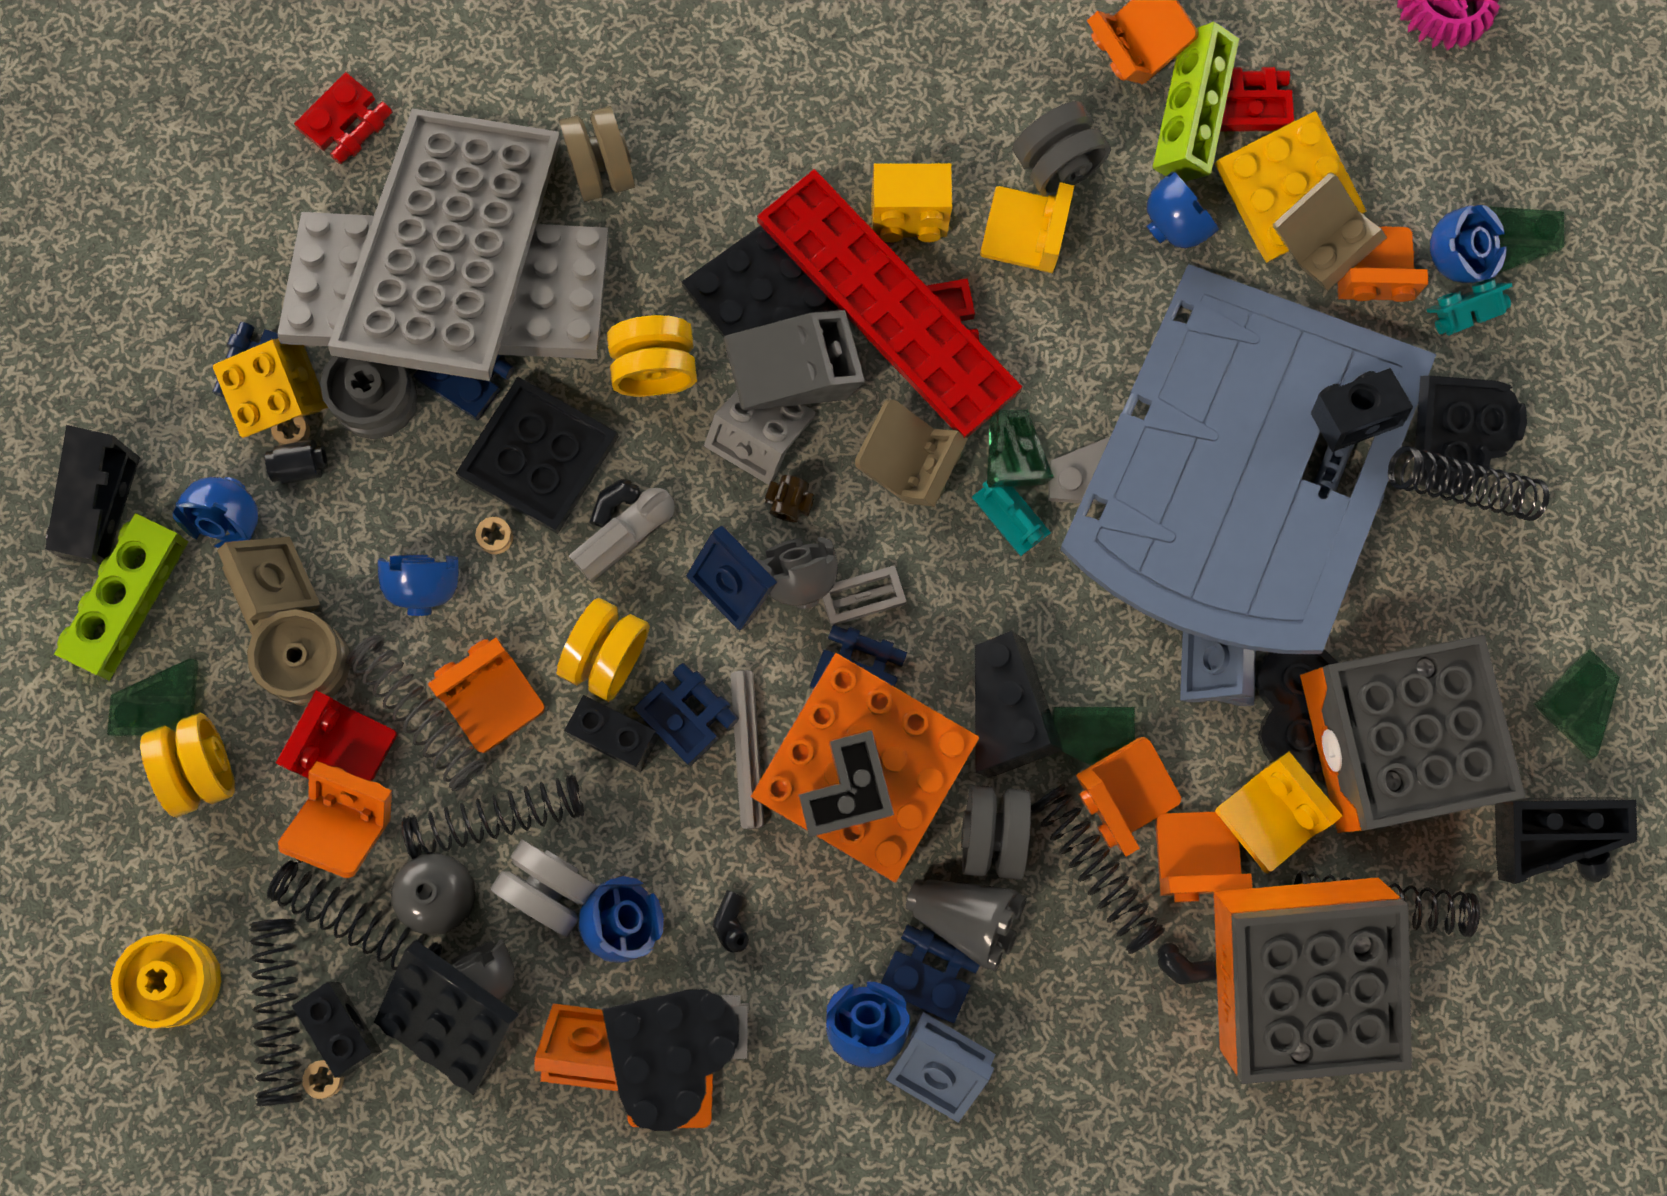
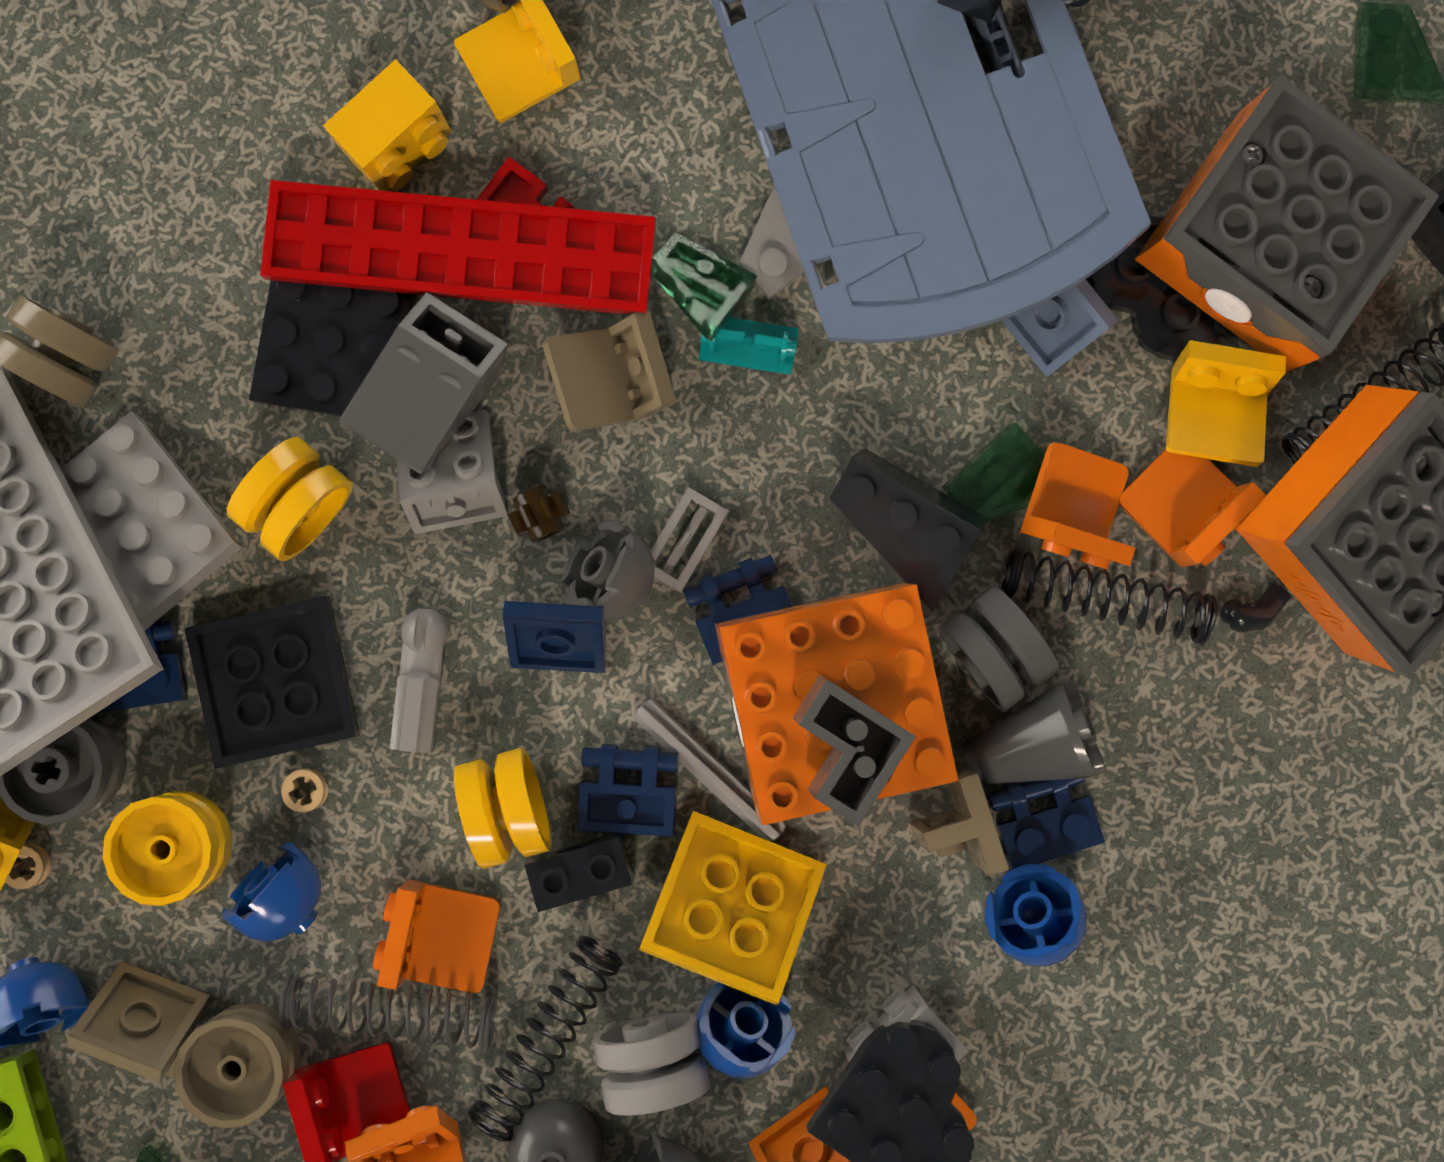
camera: 40 degrees left, 10 degrees up
(296, 462) = (59, 892): black brick -> none
(370, 474) = (139, 855): none -> yellow wheel
(610, 497) = (377, 657): black arm -> none
(683, 842) = (733, 907): none -> yellow plate
(727, 924) = (836, 938): black arm -> none
(859, 916) = (967, 823): none -> dark tan bracket
(942, 1067) = (1130, 887): sand blue bracket -> none

